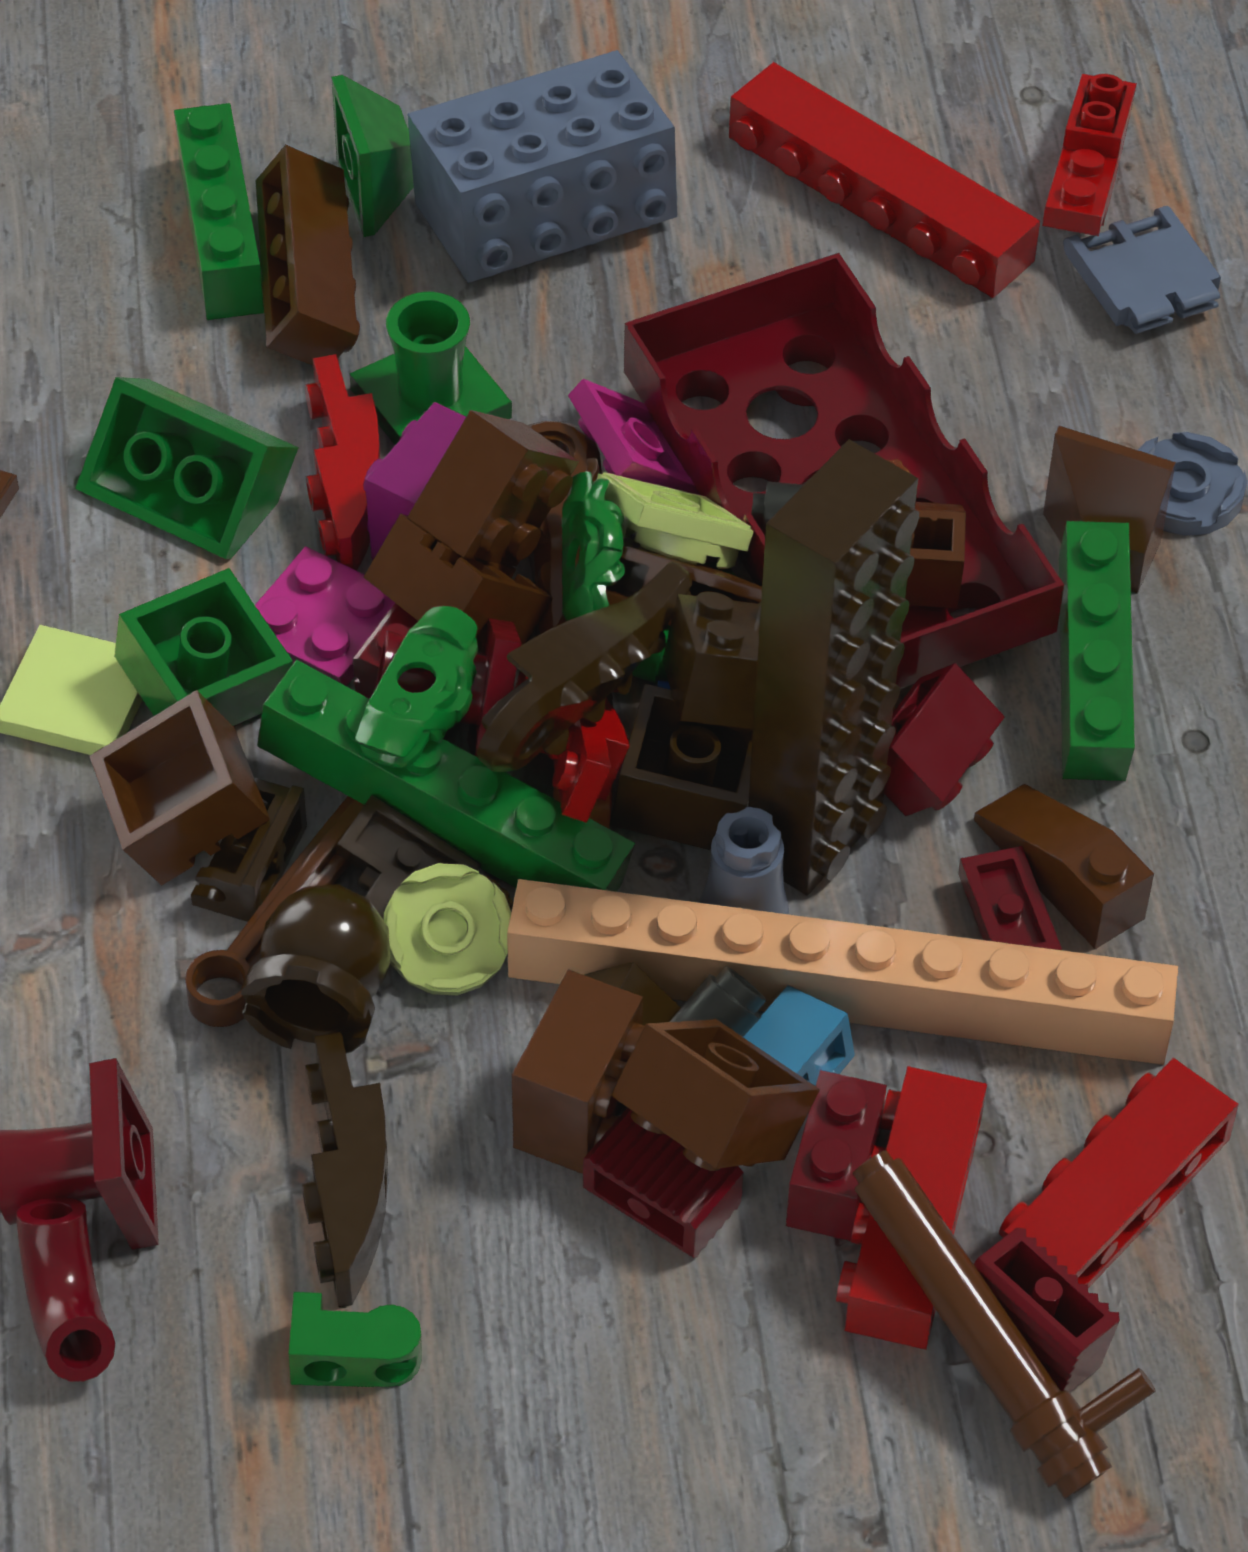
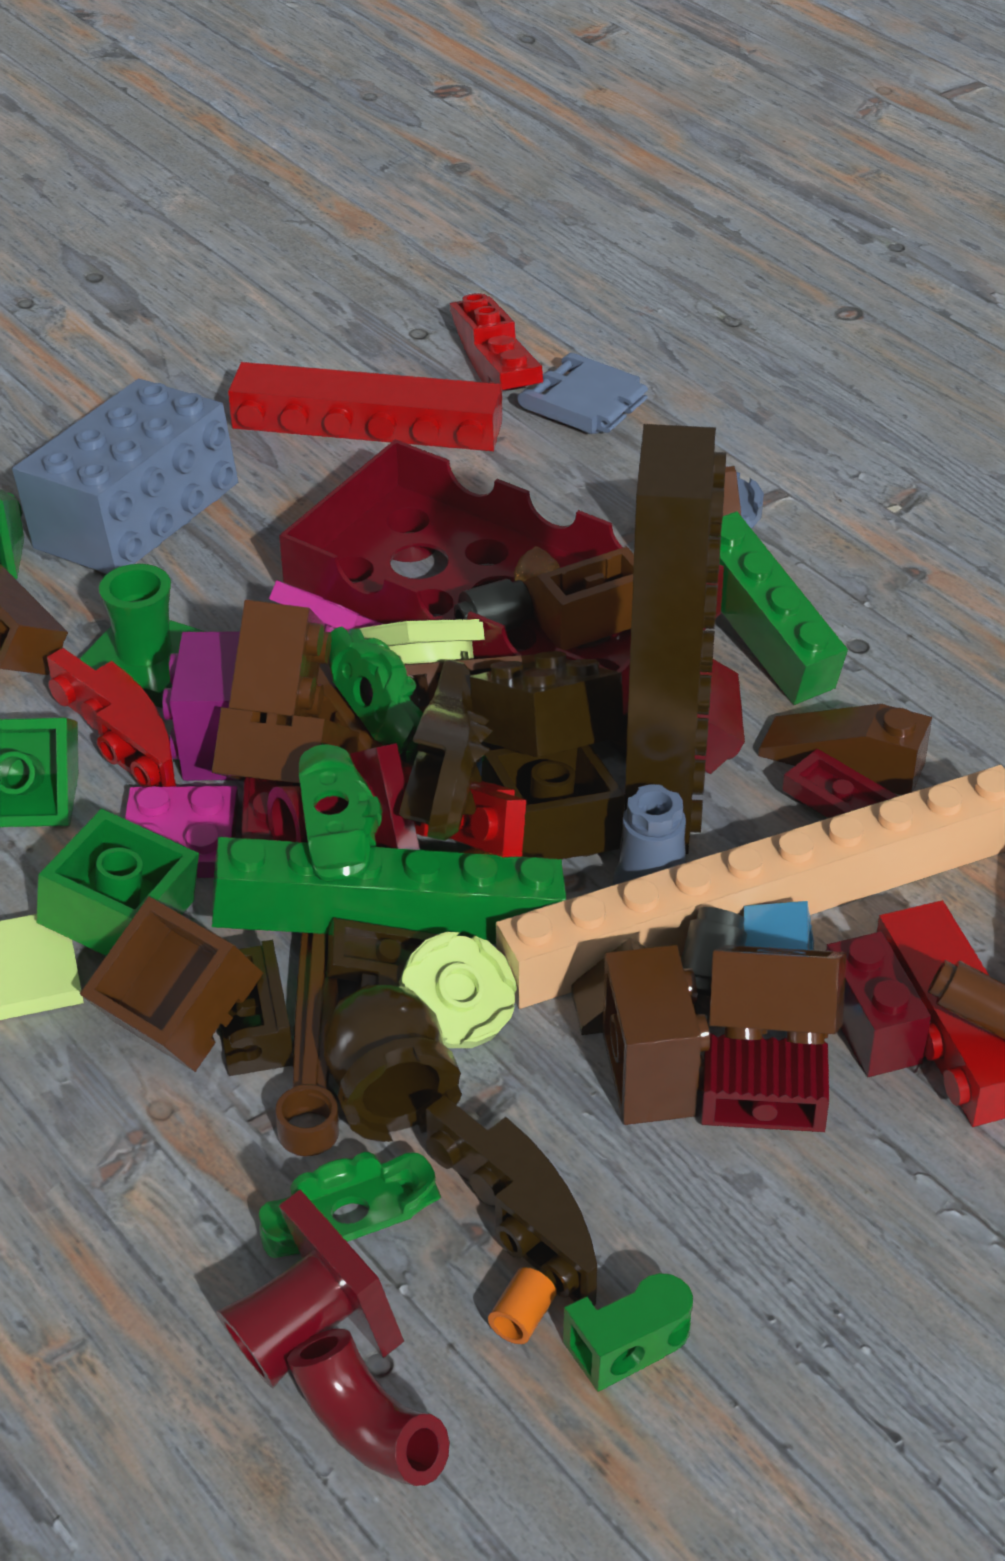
camera: 30 degrees left, 10 degrees down
(245, 1095) = (388, 1190): none -> green piece
(276, 1269) = (522, 1305): none -> orange hinge

